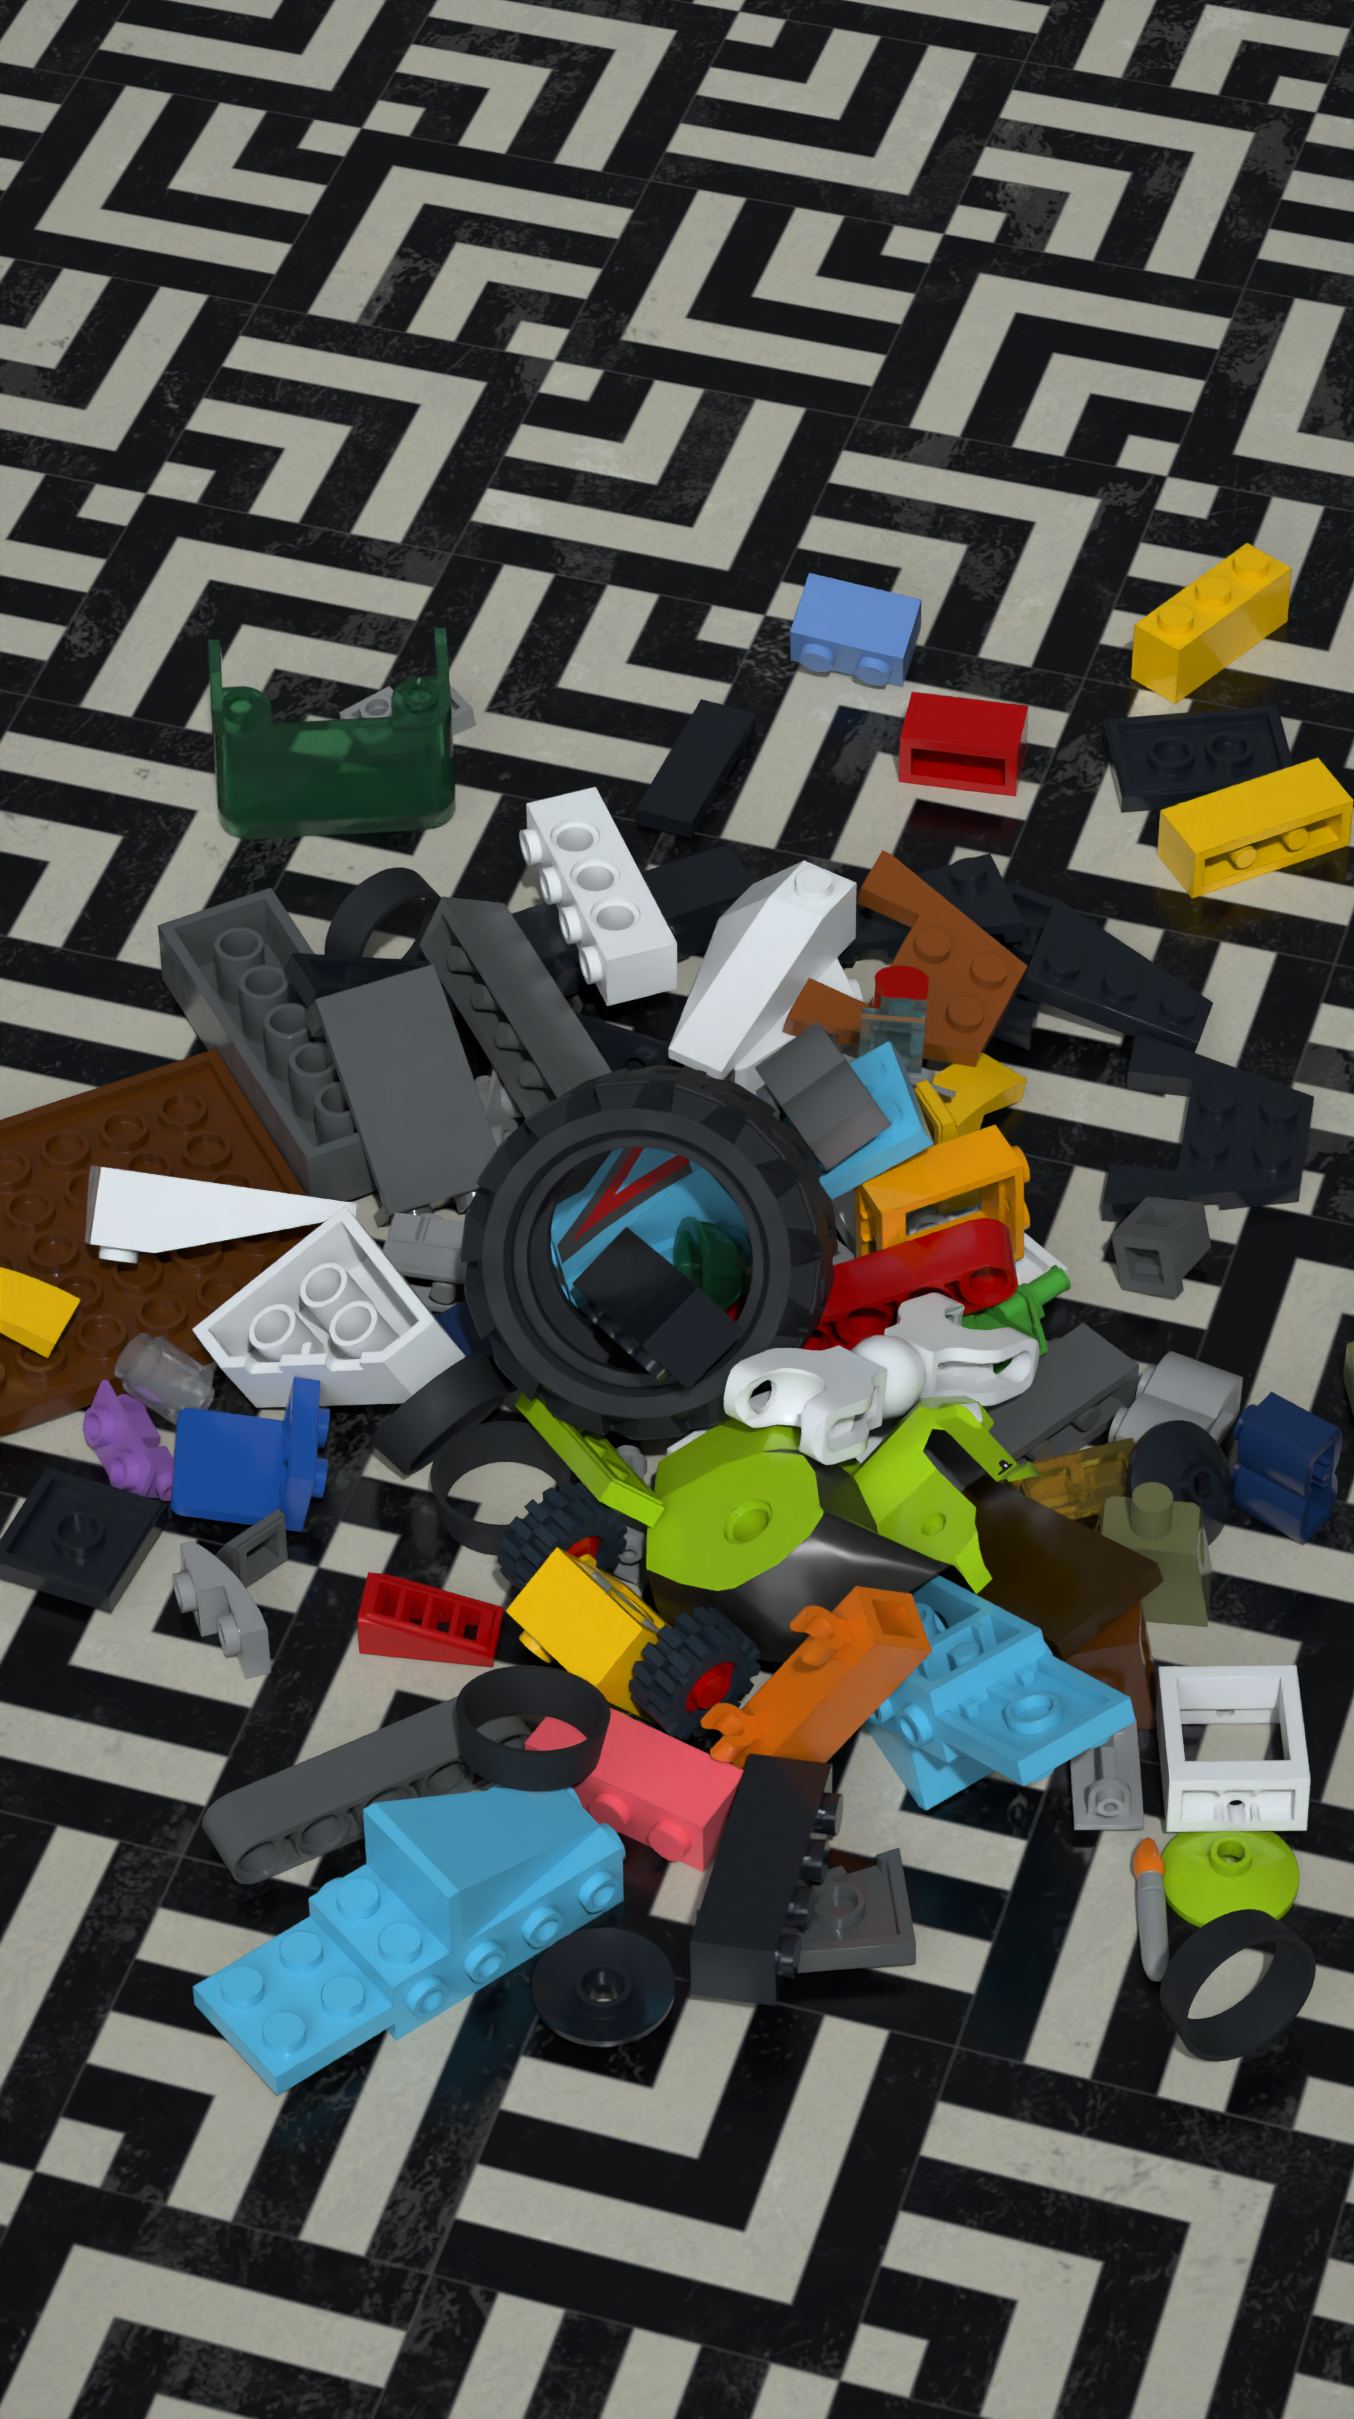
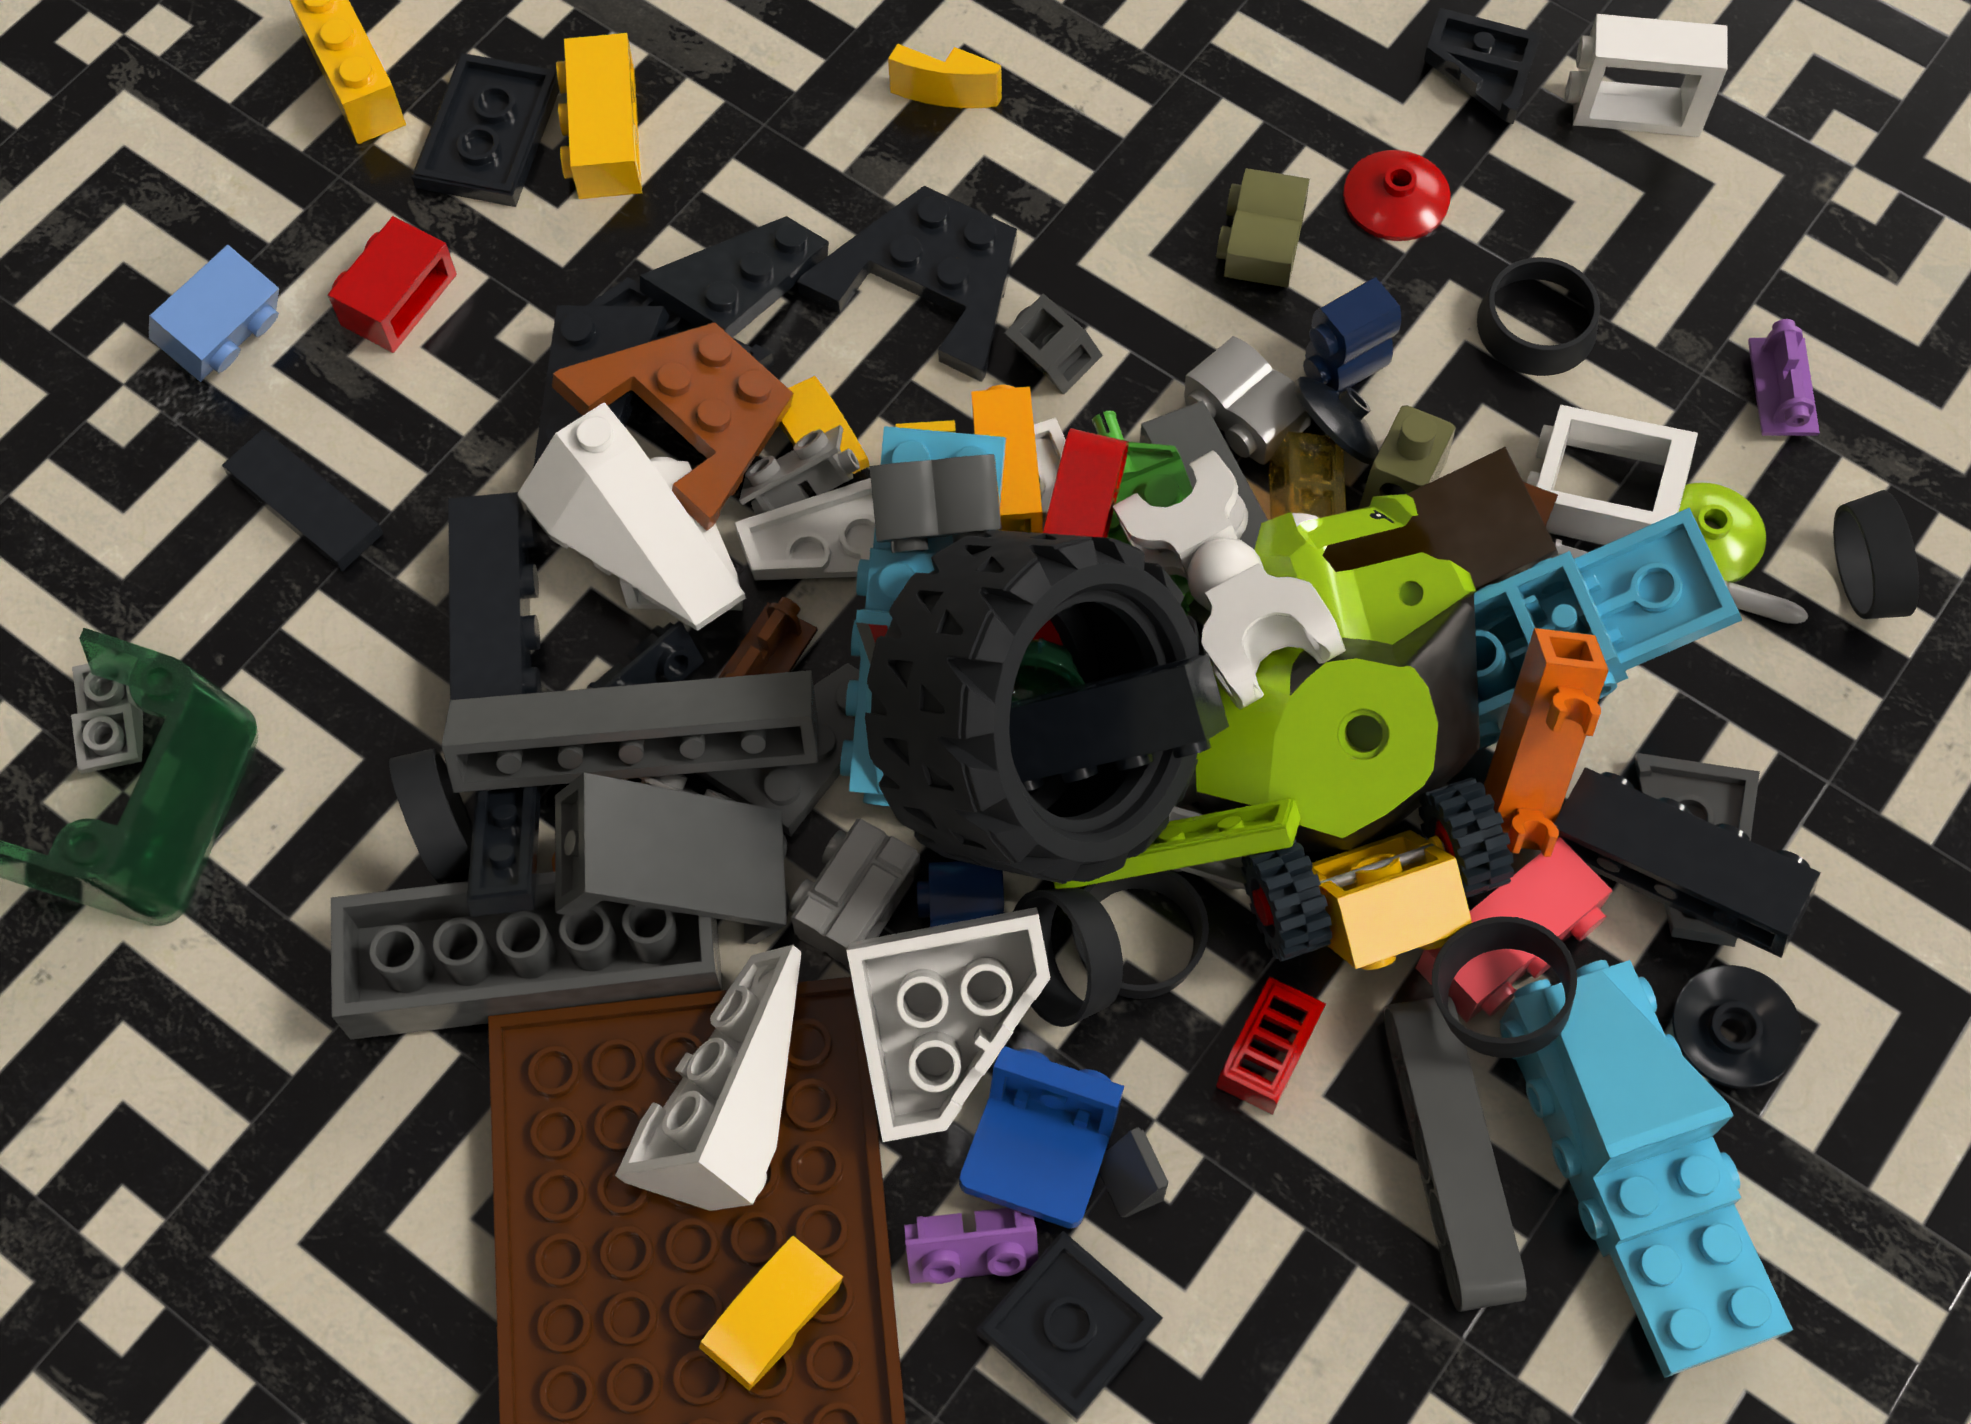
camera: 70 degrees left, 20 degrees up
(164, 1376) = (913, 1186): clear brick -> none
(222, 1607) = (1187, 1223): light grey slope -> none
(599, 896) = (400, 599): white brick -> none
(897, 1014) = (773, 427): clear light blue leg -> none

